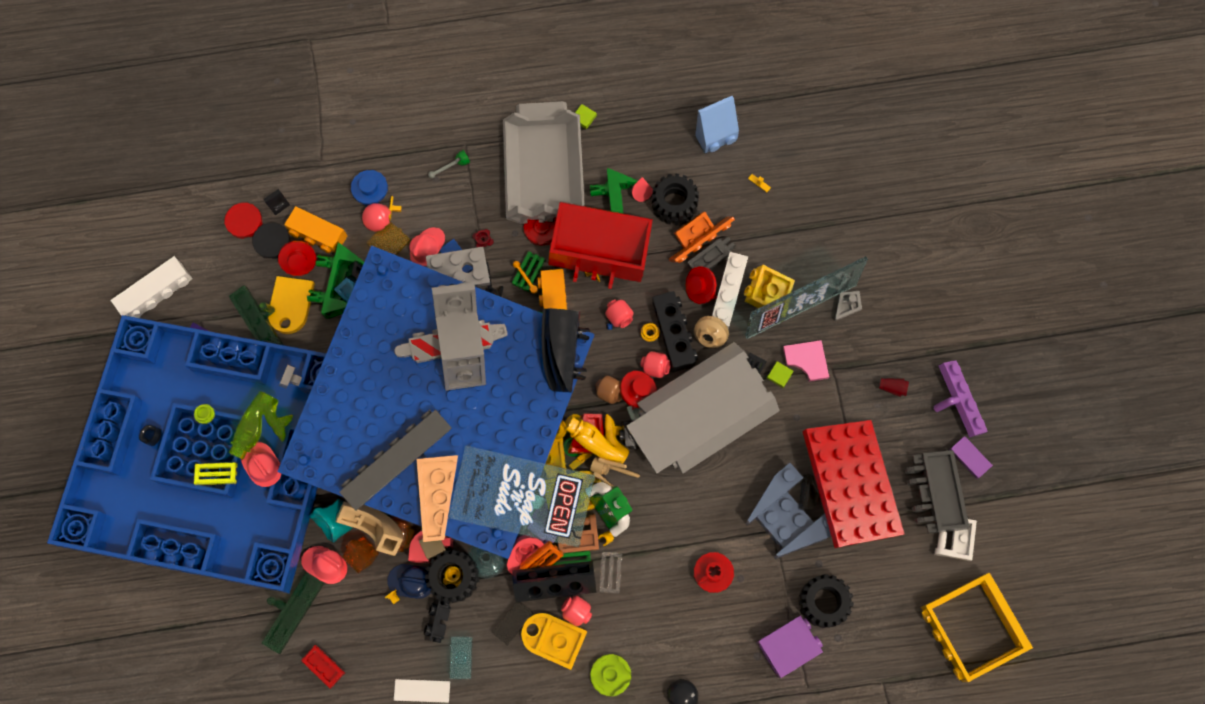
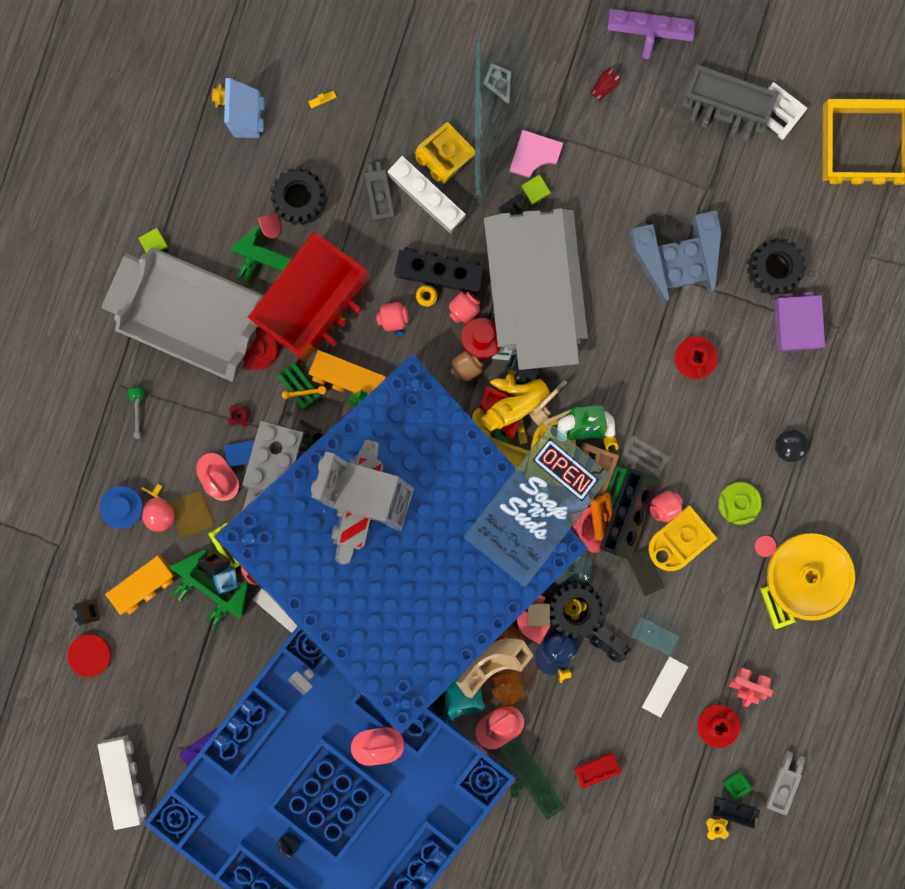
camera: 65 degrees left, 15 degrees up
(204, 414) = (296, 782): lime plate -> none
(233, 473) = (373, 778): neon yellow tile -> none
(250, 425) = (334, 741): clear neon green piece -> none
(254, 316) = (209, 687): clear green plate -> none
(270, 239) = (127, 636): black tile -> none
(290, 303) = (208, 645): yellow tile -> none
(297, 258) = (164, 617): red piece -> none
(395, 460) = (447, 611): dark grey brick -> none
(435, 492) = (491, 585): light nougat wing -> none
(559, 347) = (416, 396): black piece -> none
(696, 233) = (347, 192): orange bracket -> none
(701, 285) = (405, 219): red piece -> none
(714, 327) = (457, 232): tan piece -> none
(853, 483) = (681, 179): plate -> none
(971, 457) = (710, 51): medium lavender tile -> none

